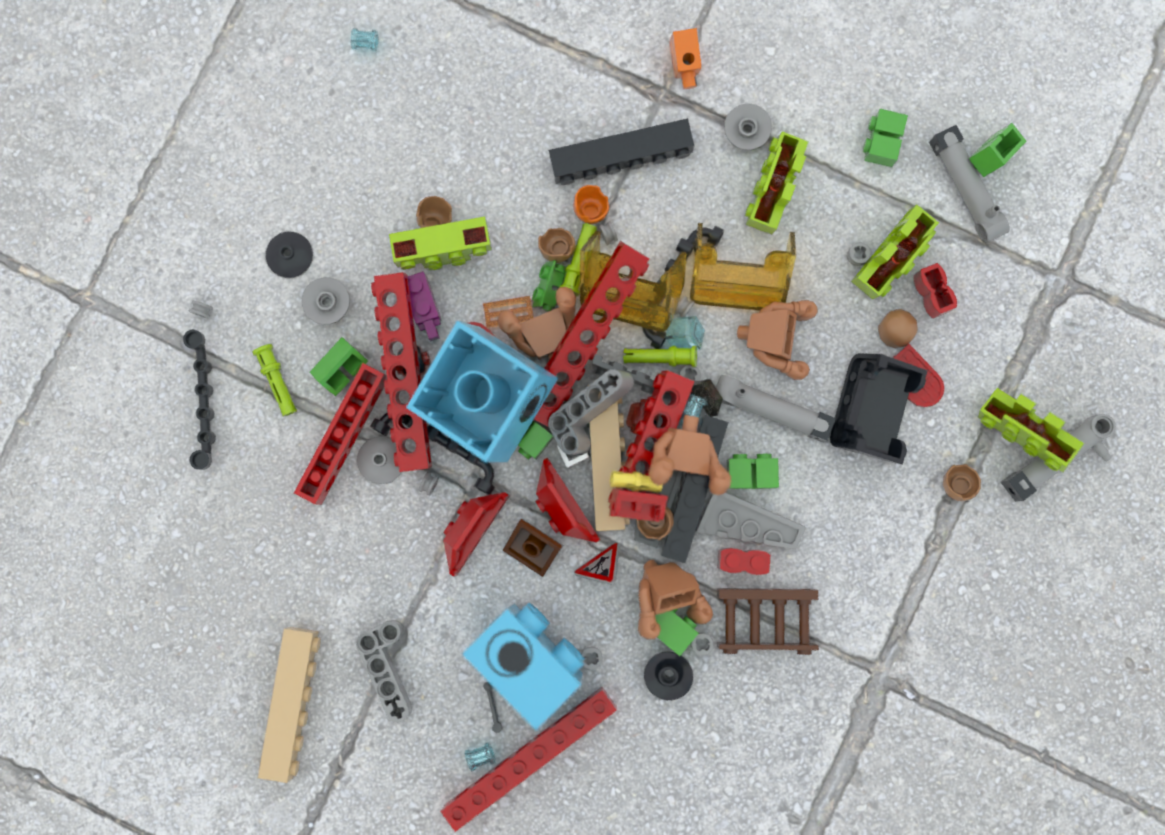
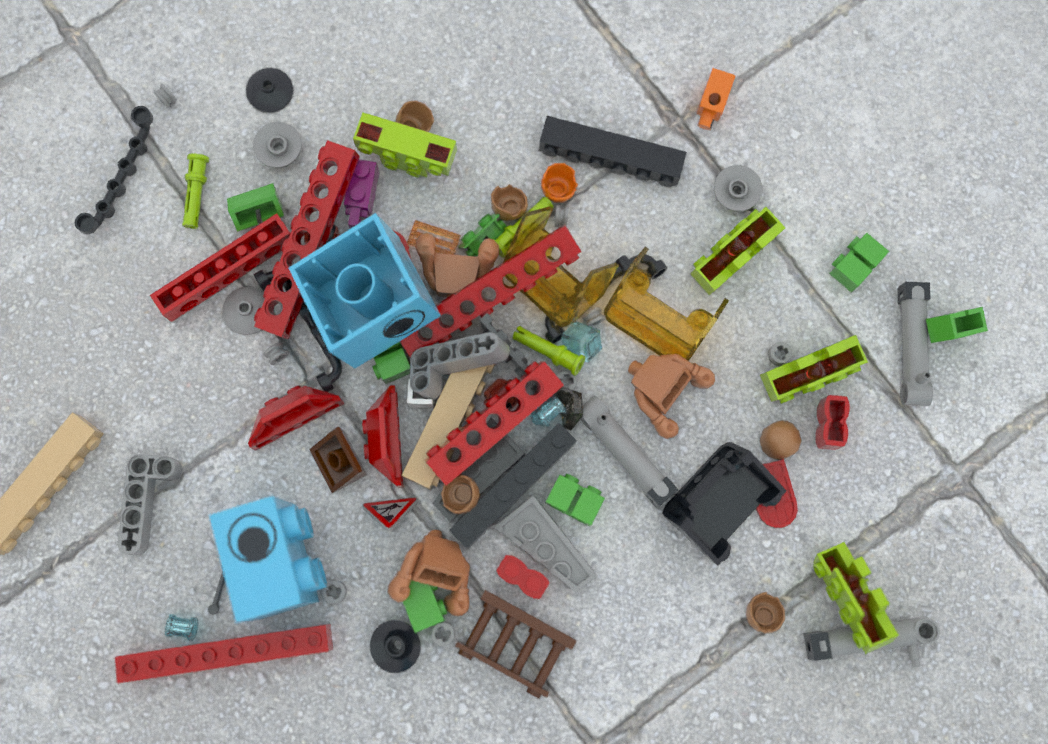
camera: 15 degrees right, 5 degrees down
(633, 481) = (459, 446): light yellow pin -> none
(638, 505) = (449, 469): red hinge -> none
(688, 452) = (522, 445): nougat torso -> none

